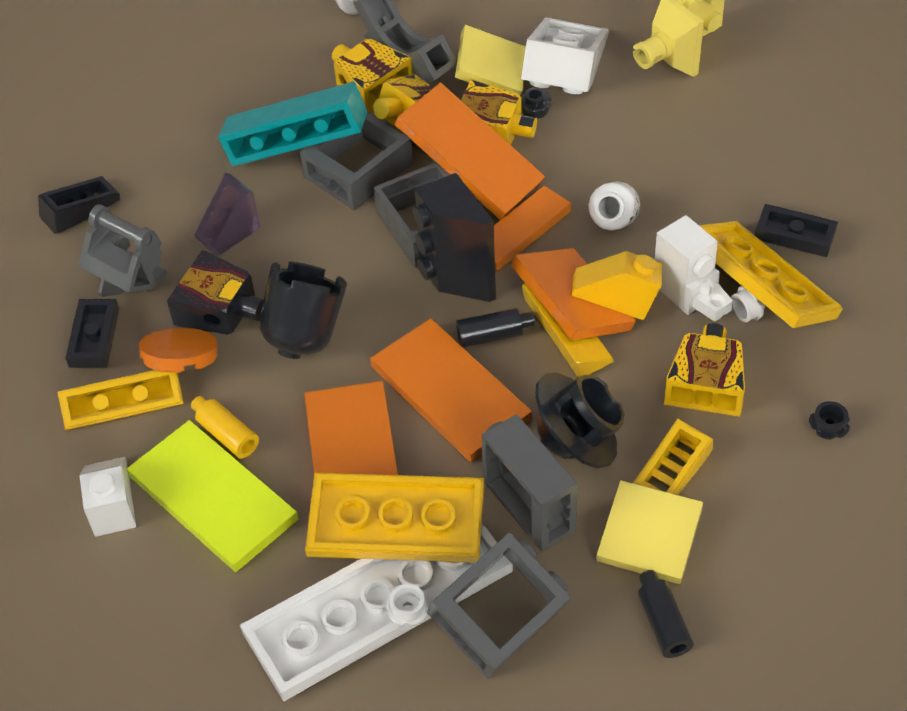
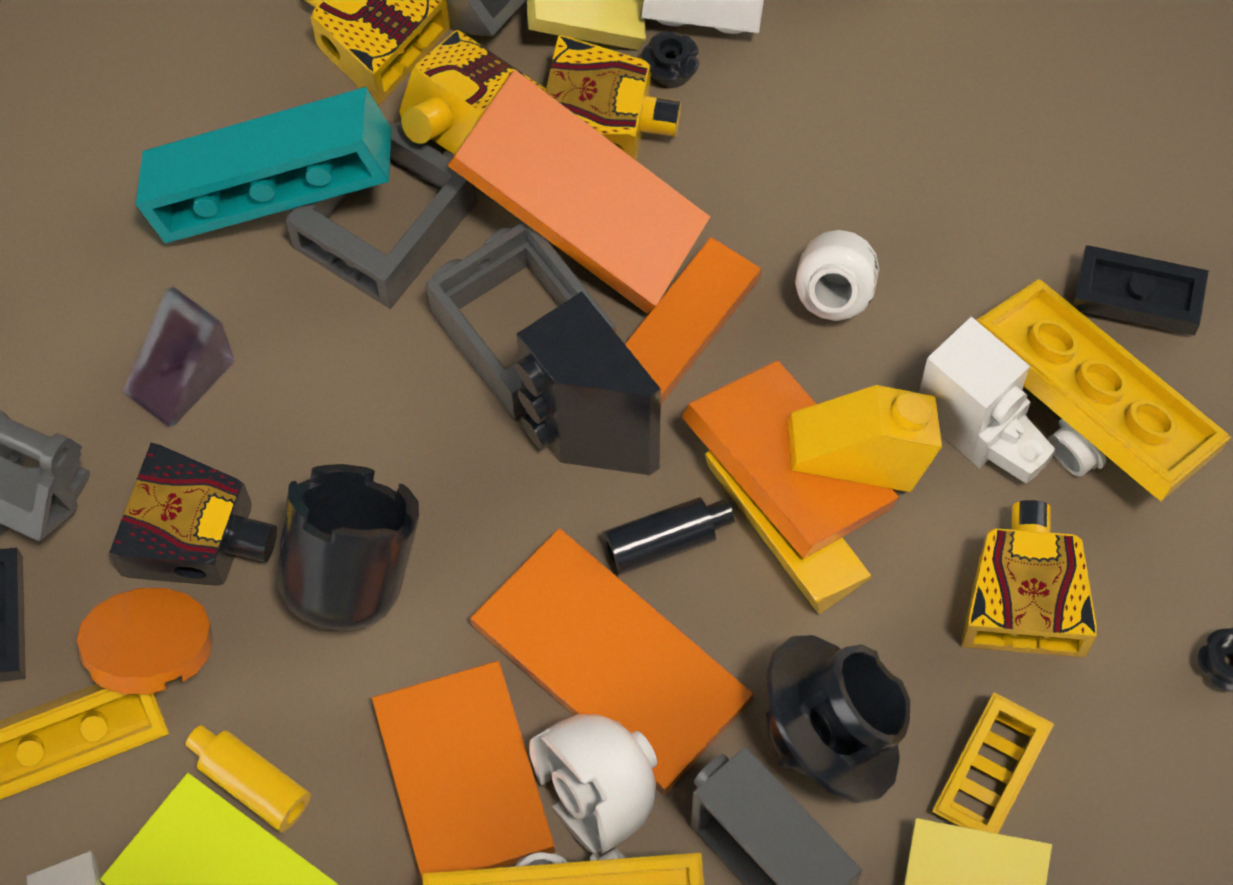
camera: 10 degrees left, 15 degrees up
(429, 437) = (599, 776): none -> white cylinder

